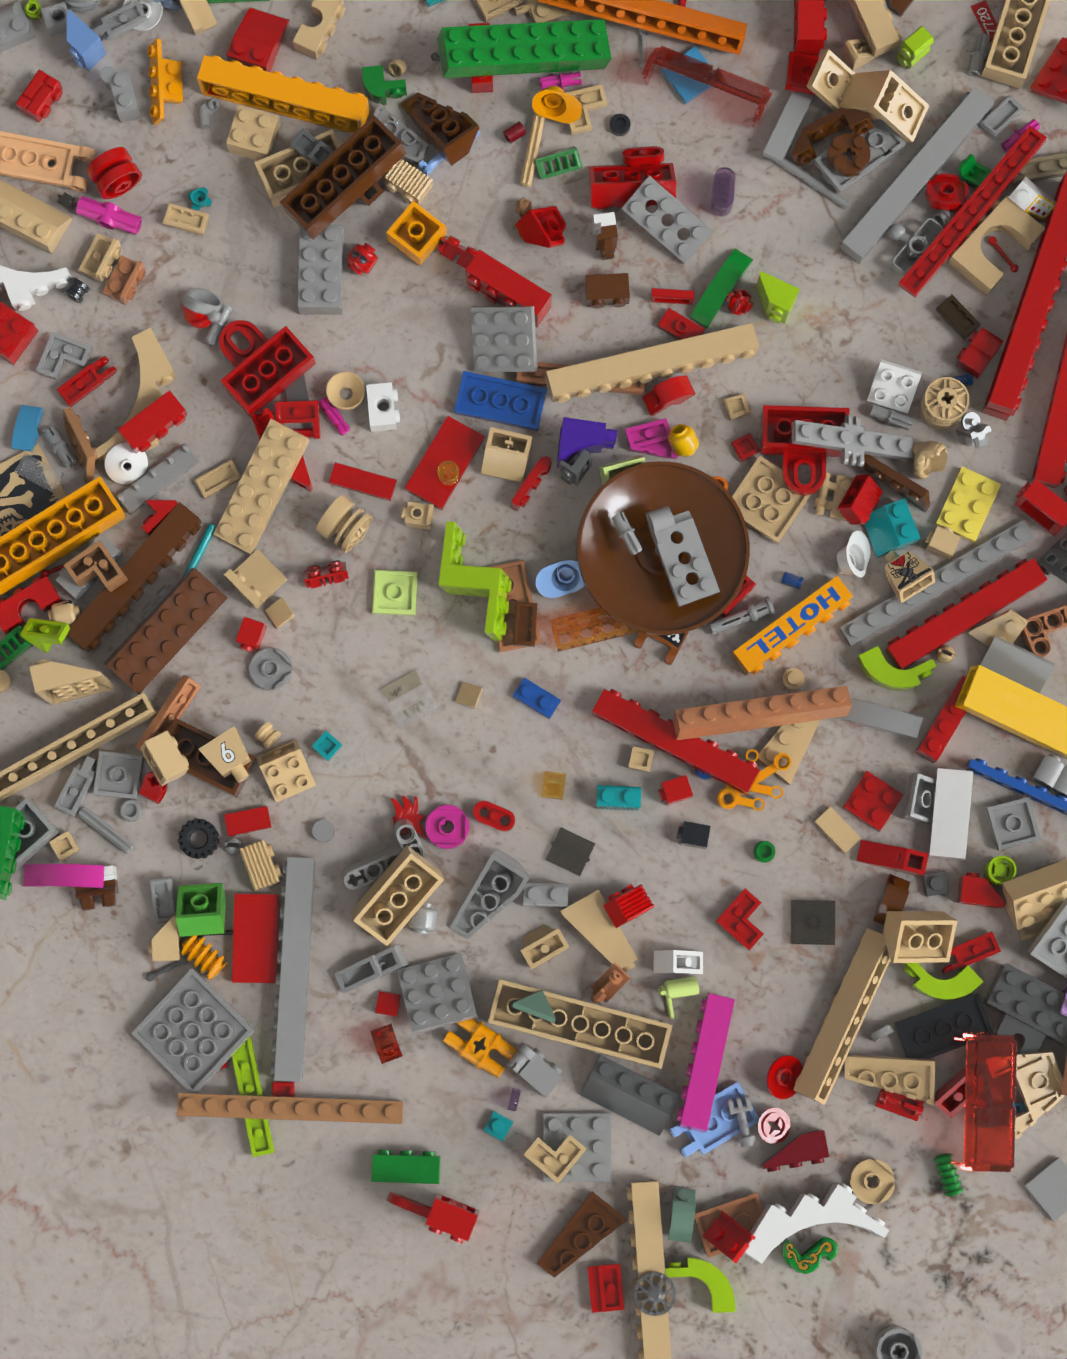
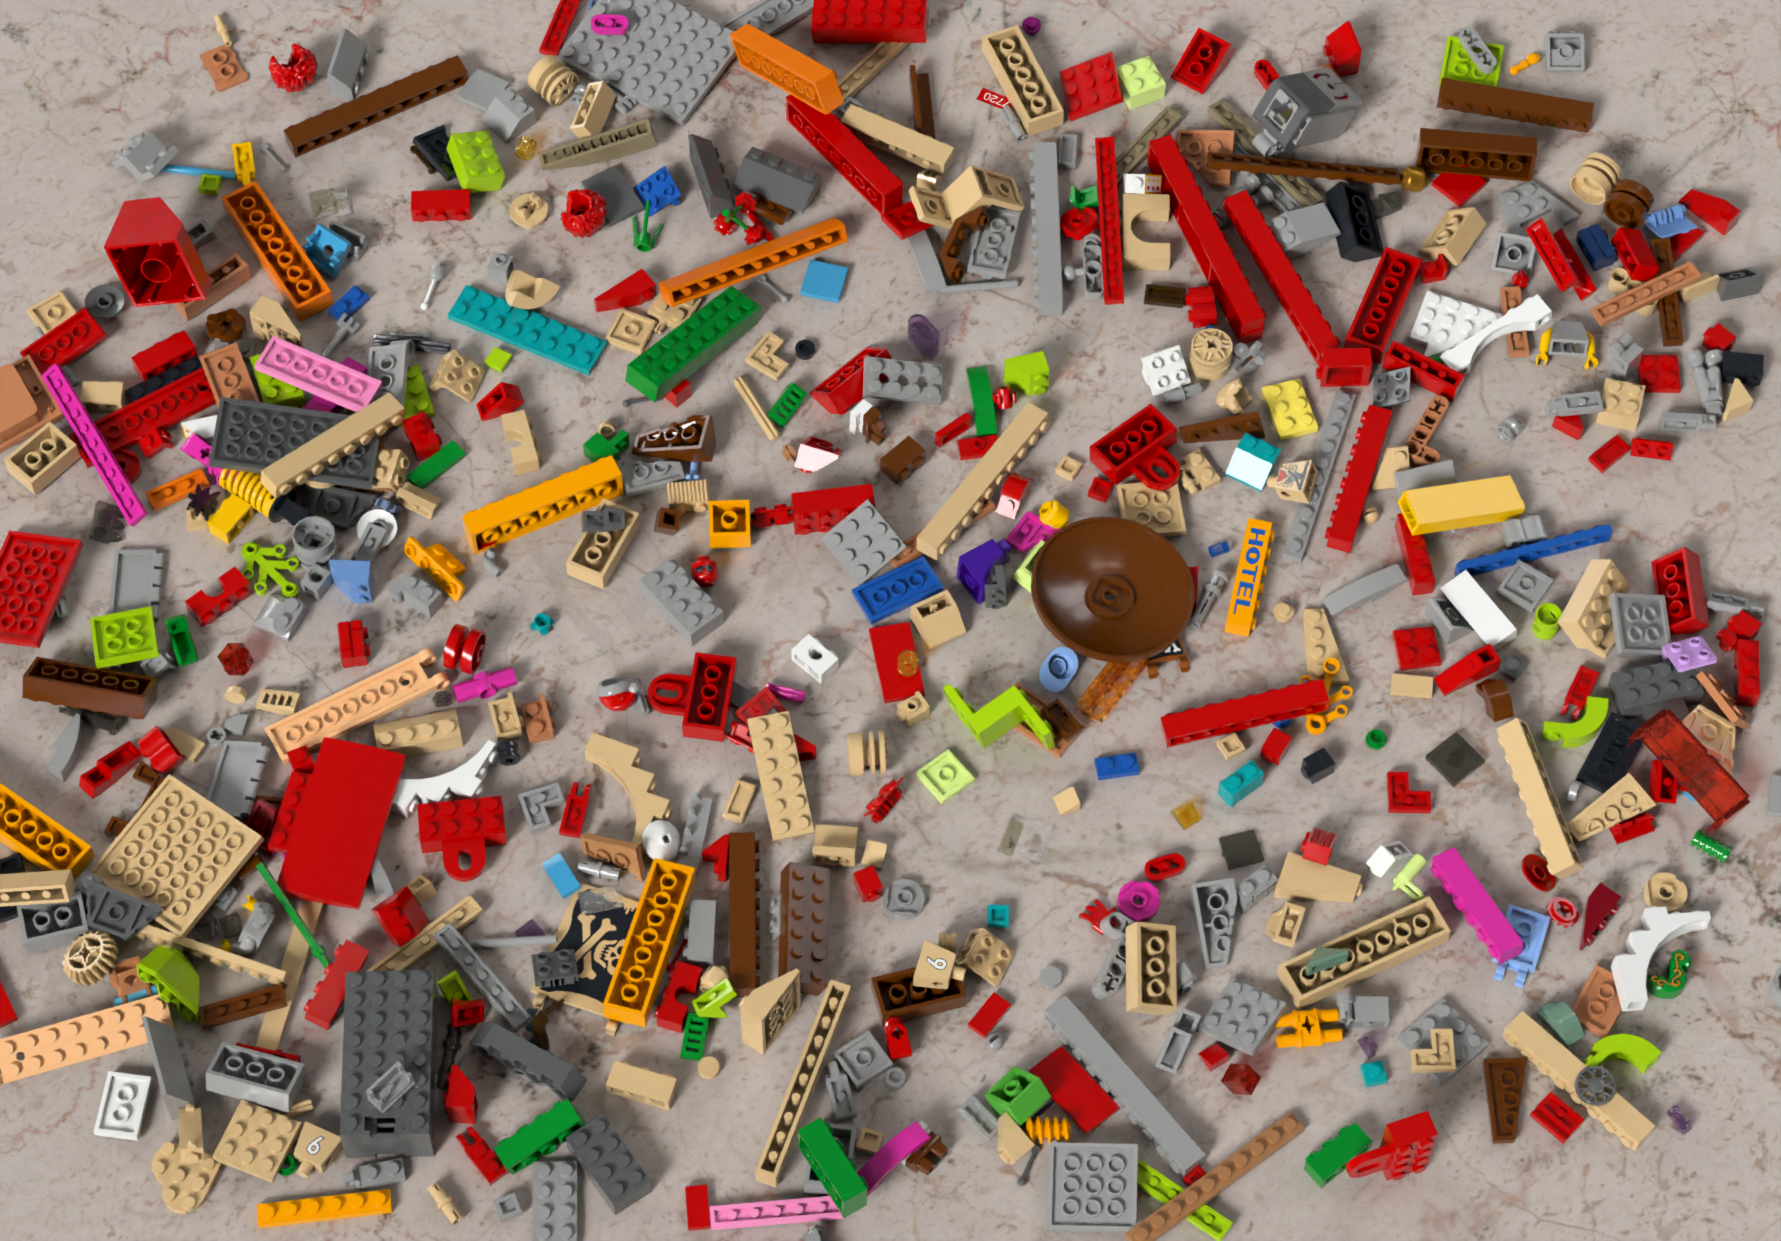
camera: 40 degrees left, 20 degrees down
(96, 562) = (713, 914): medium nougat brick -> none
(106, 830) = (889, 1106): light grey axle -> none
(153, 422) = (660, 791): red brick -> none
(165, 758) = (893, 1005): tan brick -> none
(171, 709) = (861, 989): nougat plate -> none
(186, 219) = (545, 644): tan plate -> none
(189, 829) = (965, 1043): black tyre -> none
(201, 547) = (772, 859): teal bar -> none
(253, 133) = (542, 548): tan brick -> none
(257, 39) = (483, 483): red slope -> none
(260, 865) = (1029, 1035): tan brick -> none
(342, 381) = (779, 660): tan piece -> none
(343, 177) = (646, 518): reddish brown brick -> none
(362, 481) = (849, 720): red tile -> none
(514, 132) = (734, 409): dark red hinge -> none
(531, 482) = (973, 625): red hinge -> none
(556, 105) = (752, 364): light orange piece -> none
(560, 80) = (735, 351): dark pink axle -> none
(608, 984) = (1357, 907): nougat hinge -> none
(627, 533) = (1080, 593): light grey axle -> none
(630, 1095) = (1444, 972): dark grey slope -> none
(643, 156) = (847, 352): red plate -> none
(661, 526) = (1099, 568): light grey hinge -> none
(706, 74) = (792, 280): clear red piece -> none
(729, 1237) = (1607, 1003): red plate -> none
(740, 1110) = (1528, 916): light grey hinge -> none
(762, 712) = (1286, 642): nougat brick -> none
(841, 163) = (993, 237): reddish brown plate -> none
(852, 440) = (1174, 420): light grey hinge -> none
(854, 556) = (1246, 500): white piece -> none
(860, 499) = (1215, 458): red brick -> none
(888, 677) = (1347, 558): lime arch -> none
(914, 47) = (967, 147): lime brick -> none
(919, 936) = (1537, 700): tan slope -> none
(942, 542) = (1297, 444): tan brick -> none
(978, 892) = (1547, 647): red slope -> none
(992, 241) = (1138, 233): red hinge -> none
(1008, 143) = (1090, 164): dark pink axle -> none

